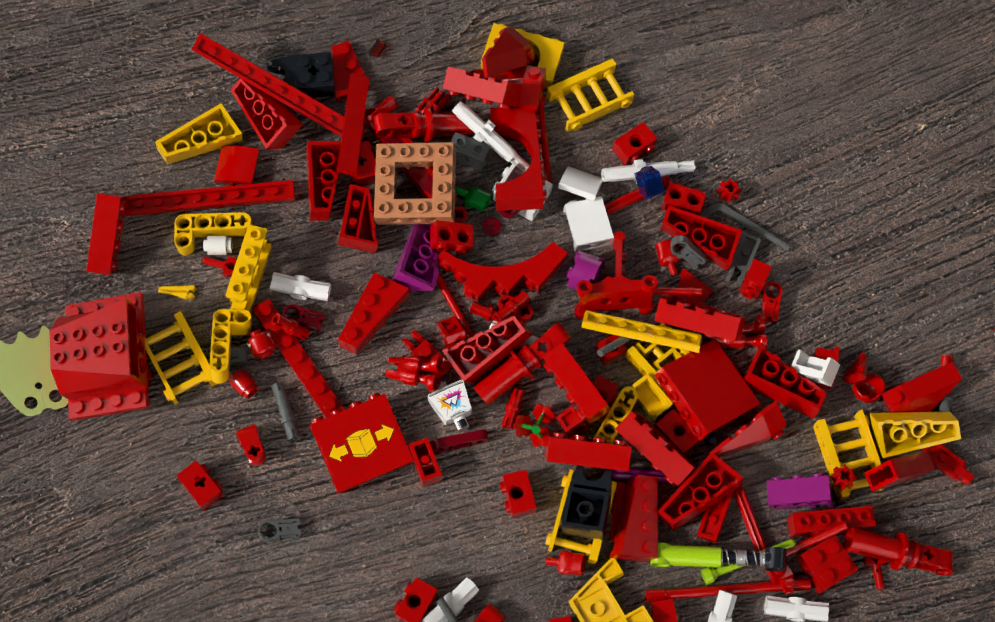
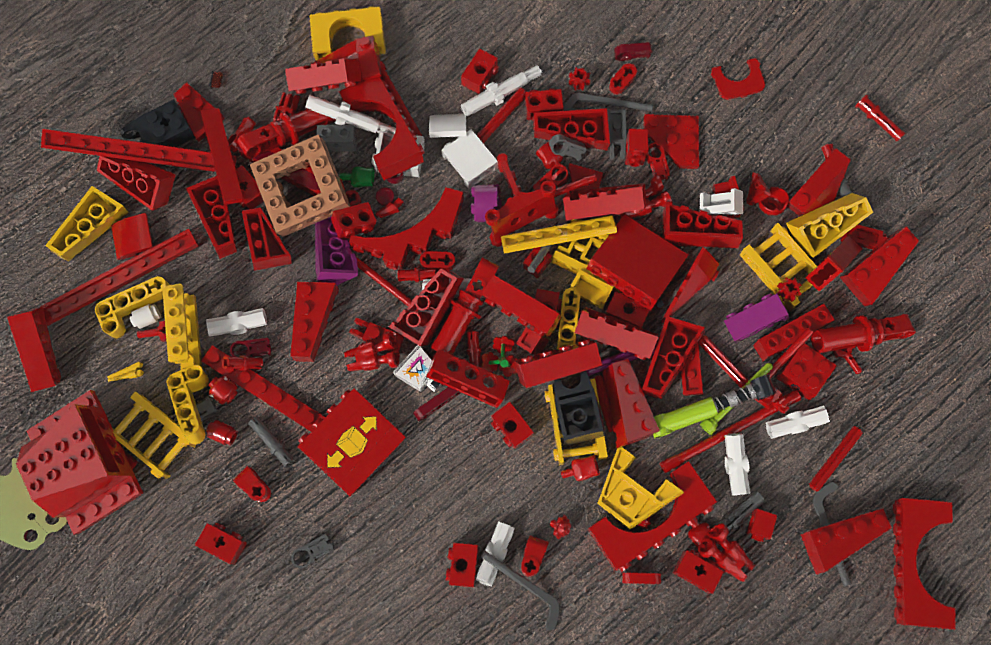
camera: 15 degrees left, 5 degrees up
(425, 462) = (416, 433): red brick -> none
(451, 331) = (389, 305): red slope -> none
(490, 240) = (390, 208): none -> red bar
(496, 440) = (472, 387): none -> red brick
(508, 53) = (333, 35): red wedge -> none
(512, 307) = (434, 261): red pin -> none
(524, 608) = (561, 526): none -> red plant
(589, 78) = (413, 30): yellow fence -> none
(649, 182) = (507, 99): clear blue brick -> none
(659, 274) = (548, 177): none -> red piece
(770, 204) = (620, 76): none -> red beam
(792, 184) = (628, 51): none -> dark red piece
(800, 285) = (678, 137): none -> red plate
(898, 266) = (733, 89): none -> red piece
(938, 496) = (878, 267): none -> red wedge

